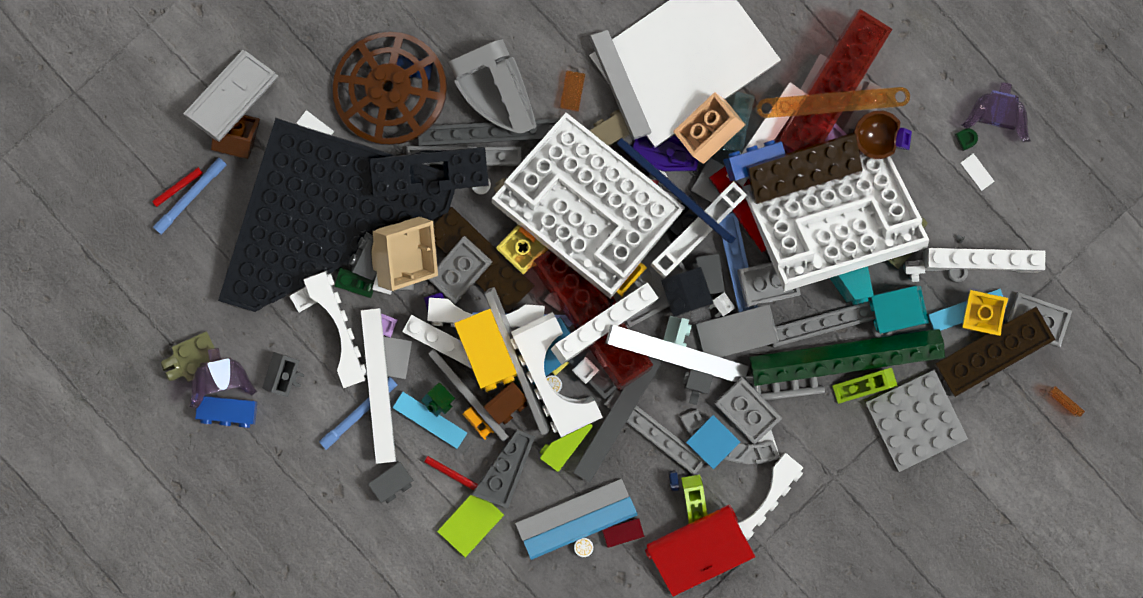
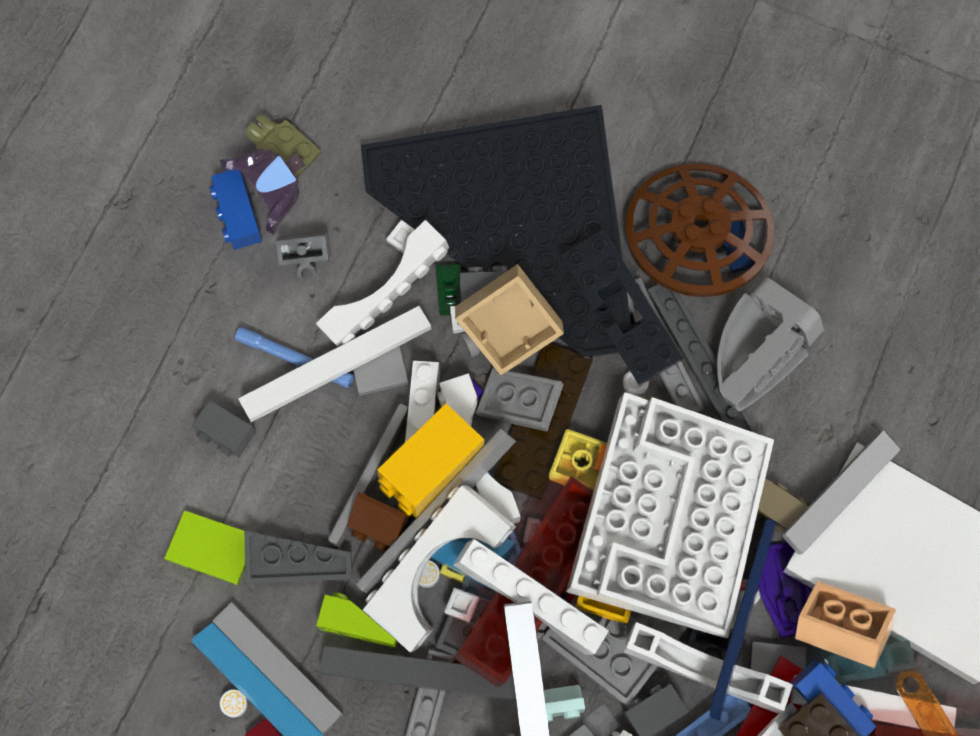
camera: 75 degrees right, 15 degrees down
(178, 186) = (474, 55): red bar -> none
(217, 166) = (433, 60): medium blue piece -> none
(230, 95) = (604, 60): light grey piece -> none
(239, 139) = (562, 85): reddish brown slope -> none
(312, 122) = (617, 164): white sticker -> none
(388, 325) = (416, 347): lavender tile -> none
(437, 425) = (320, 445): medium azure tile -> none
(438, 400) = (347, 441): dark green brick -> none
(451, 473) = (264, 496): red bar -> none
(475, 420) = (340, 499): light orange bar -> none
(572, 91) = (803, 441): clear orange tile -> none
(687, 291) = (619, 690): black slope -> none

